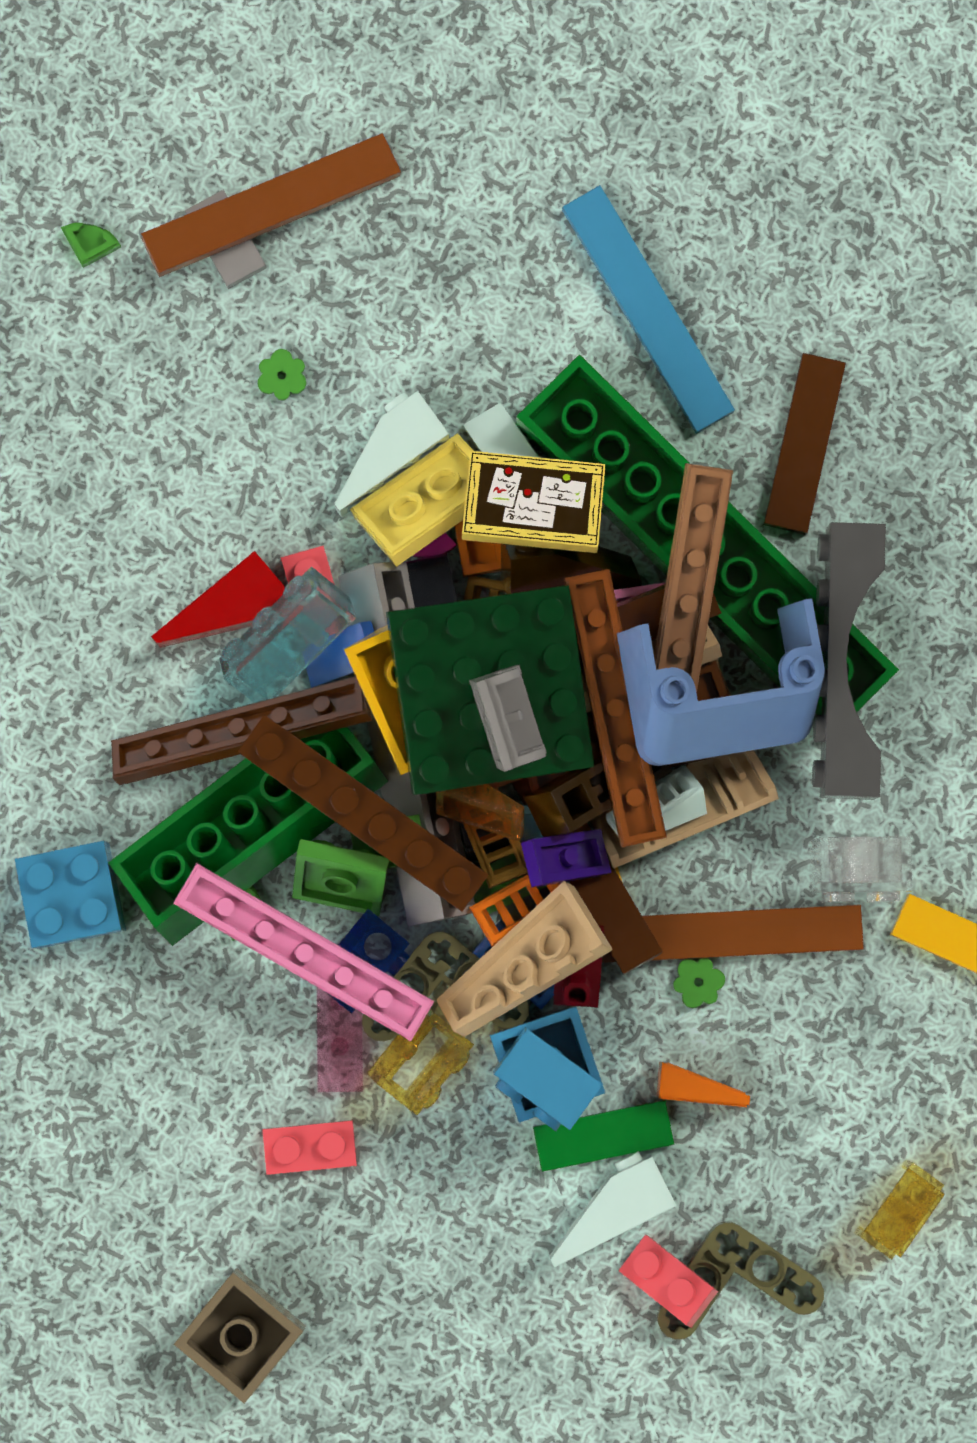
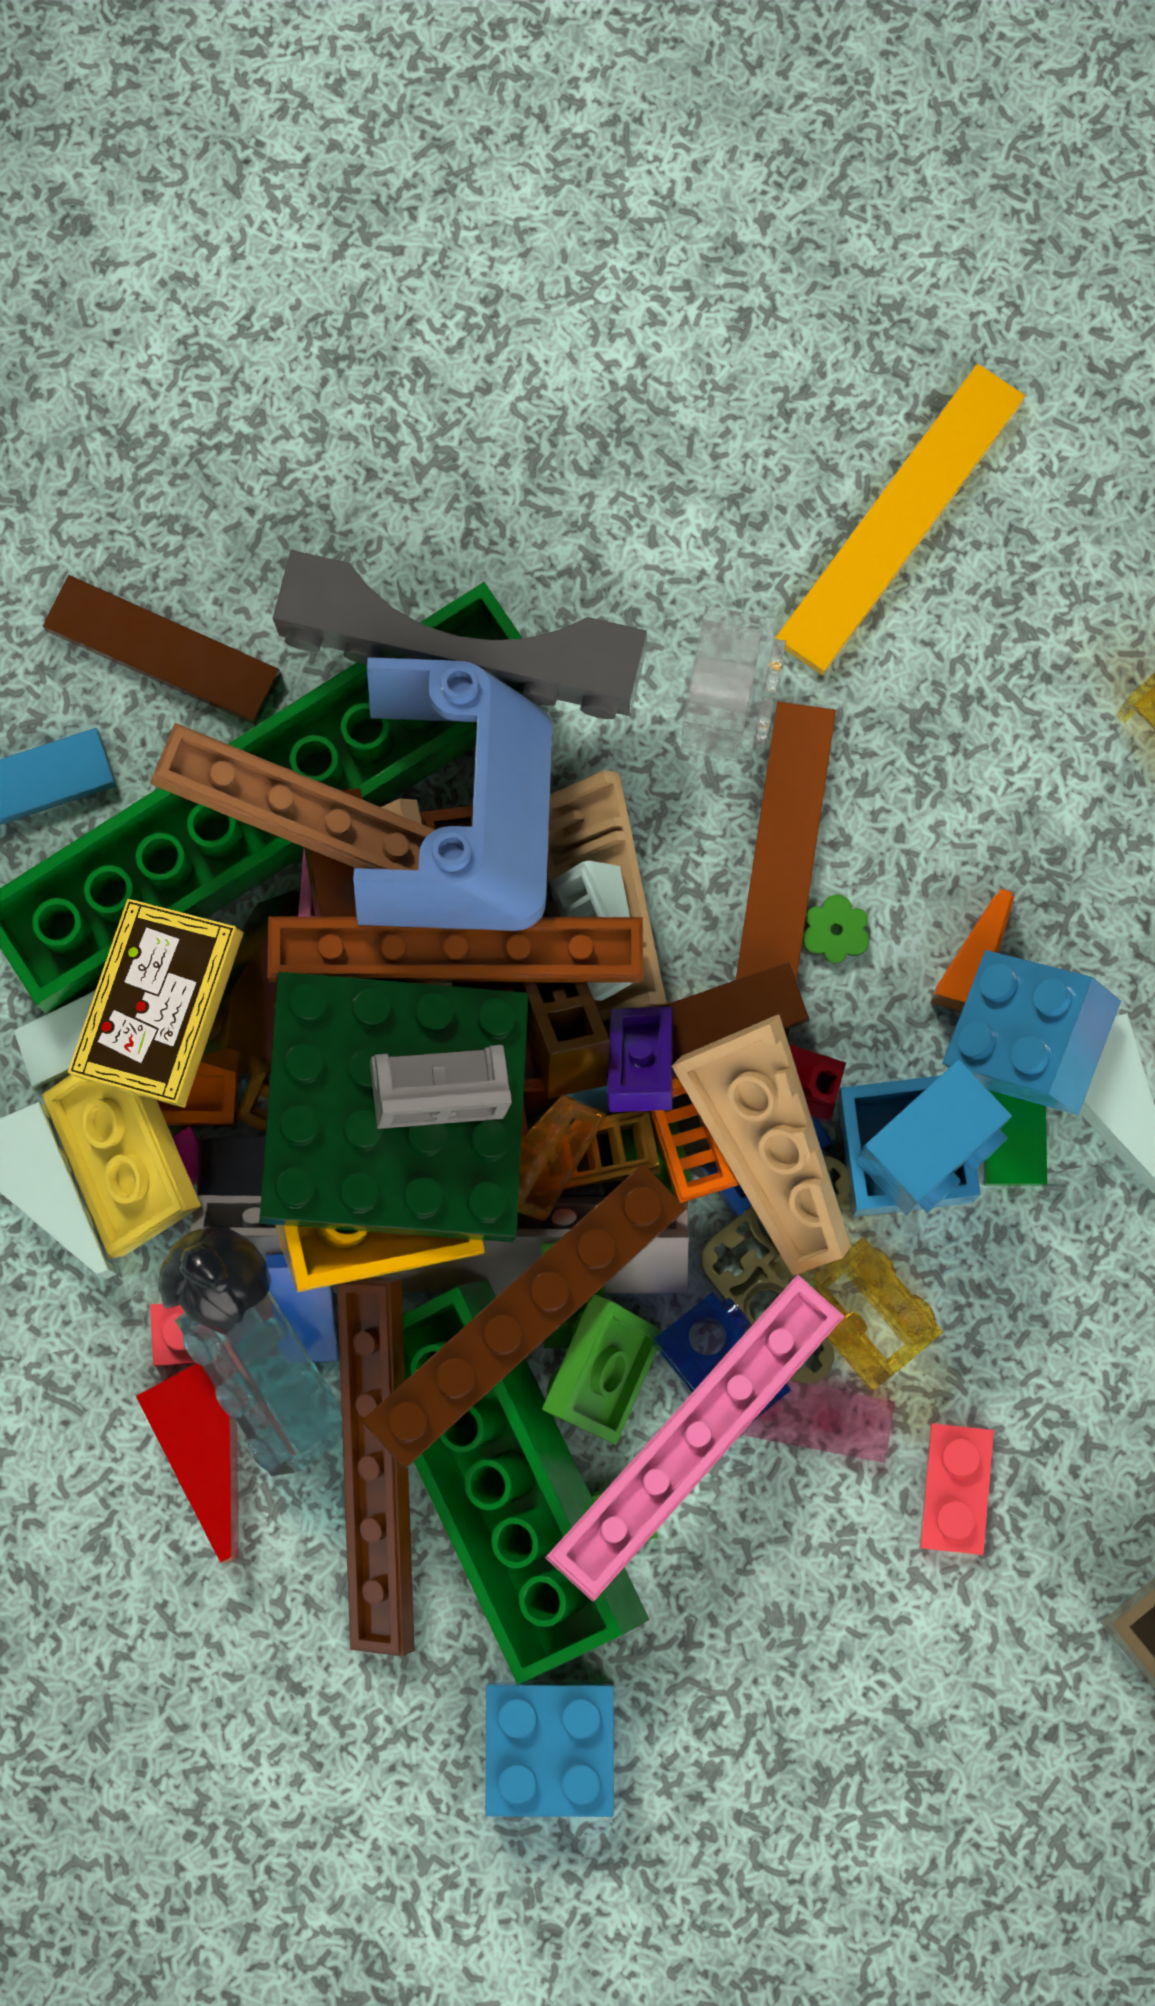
camera: 65 degrees left, 5 degrees down
(344, 588) = (214, 1277): none -> black hair
(645, 1137) = (1033, 1031): none -> dark azure brick

